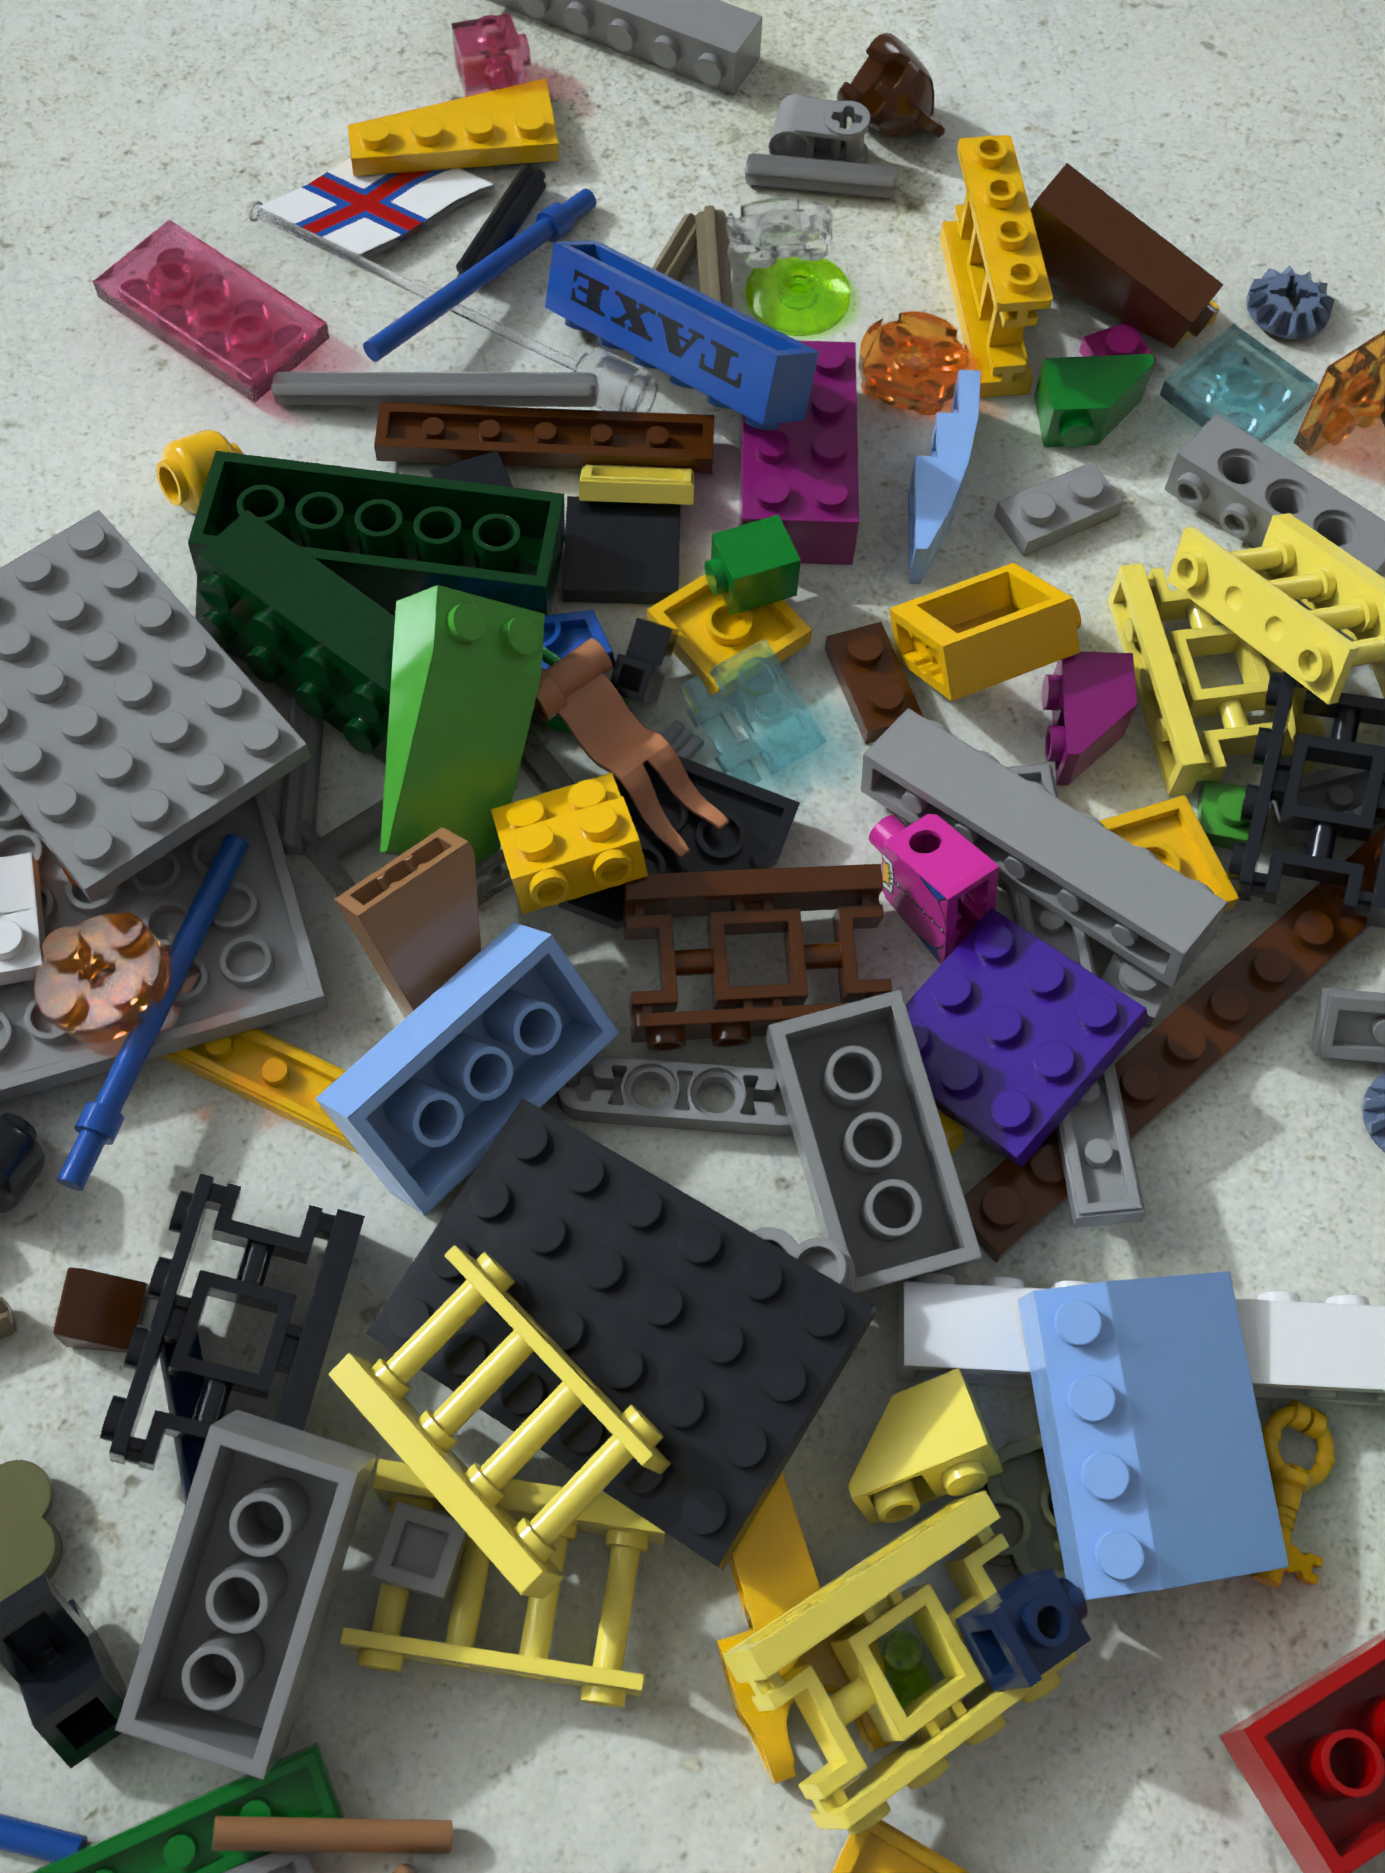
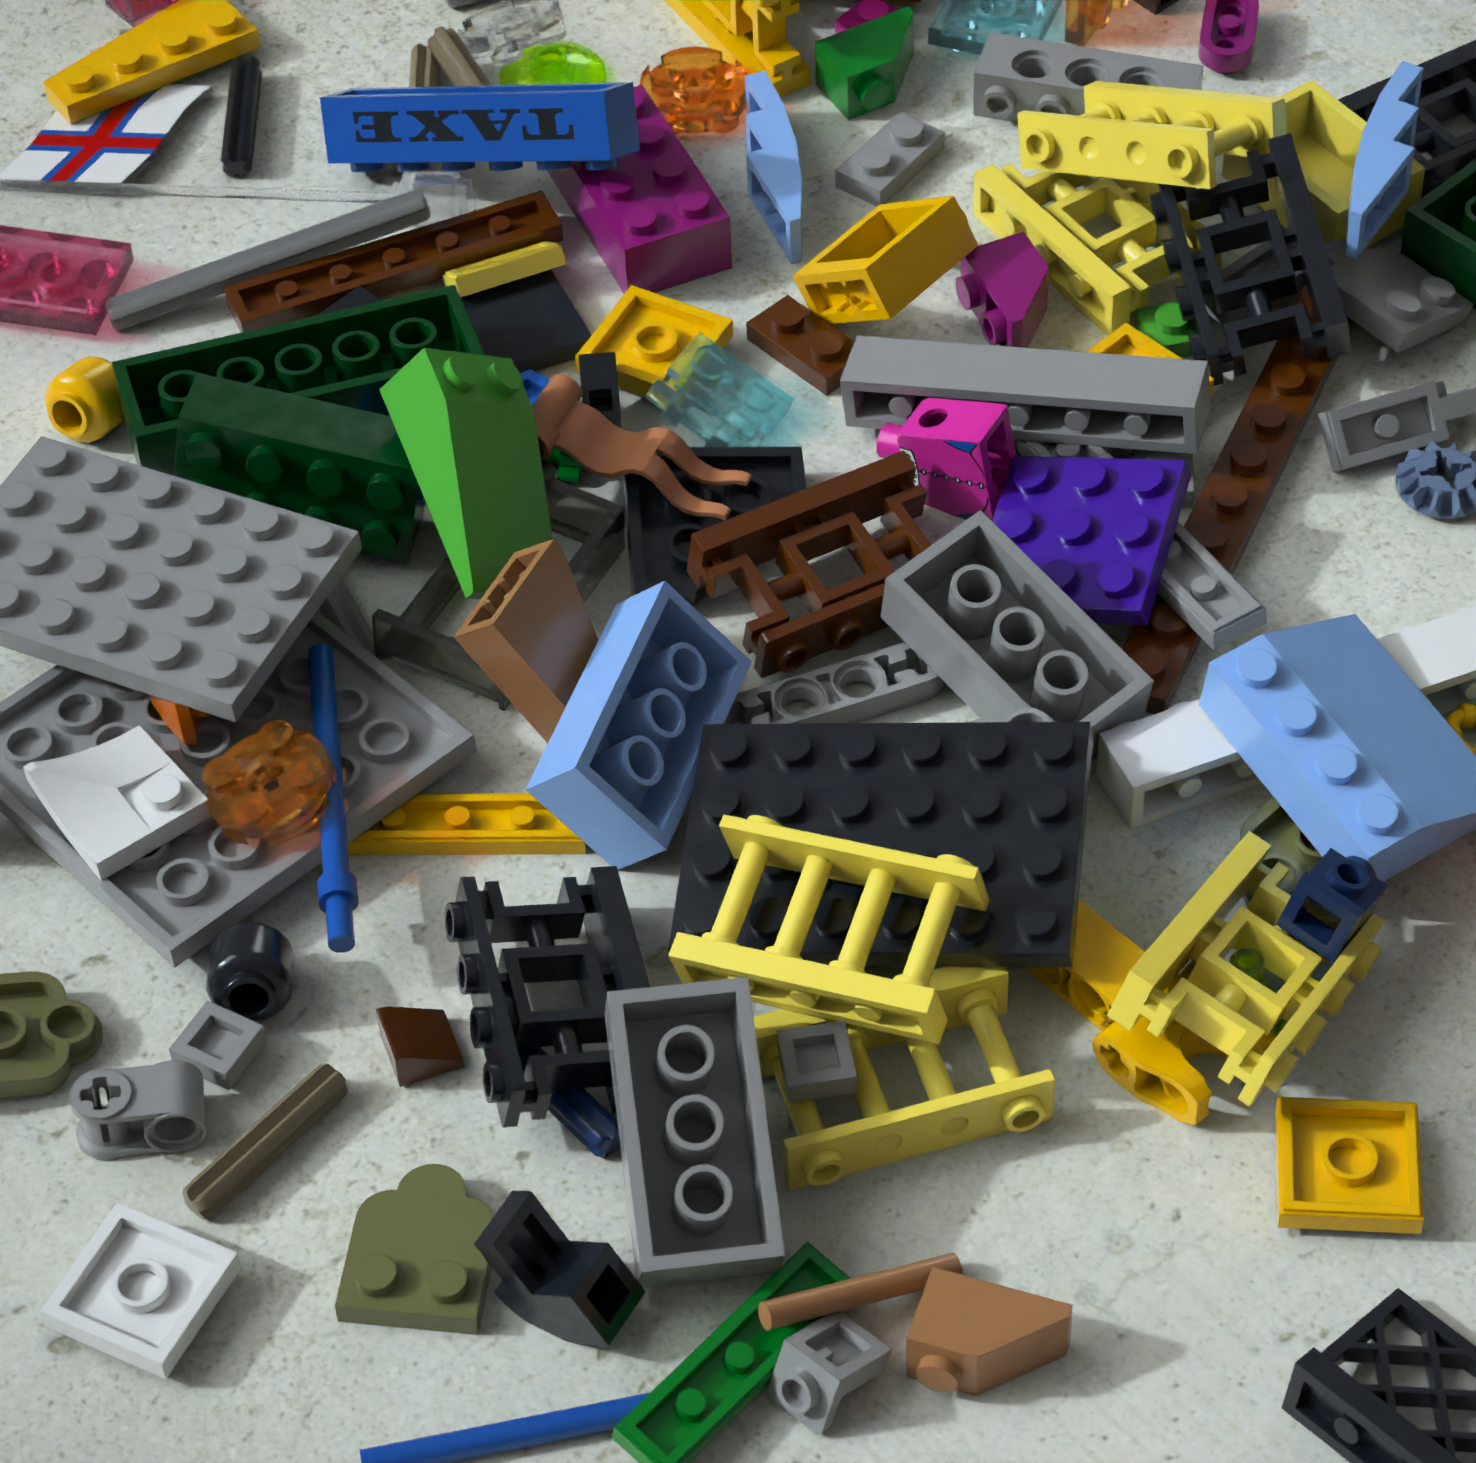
camera: 20 degrees left, 15 degrees down
(549, 226) = (287, 101): blue bar -> none
(569, 843) = (631, 527): yellow plate -> none
(753, 565) = (656, 281): green brick -> none
(923, 1449) = (1182, 840): light yellow slope -> none

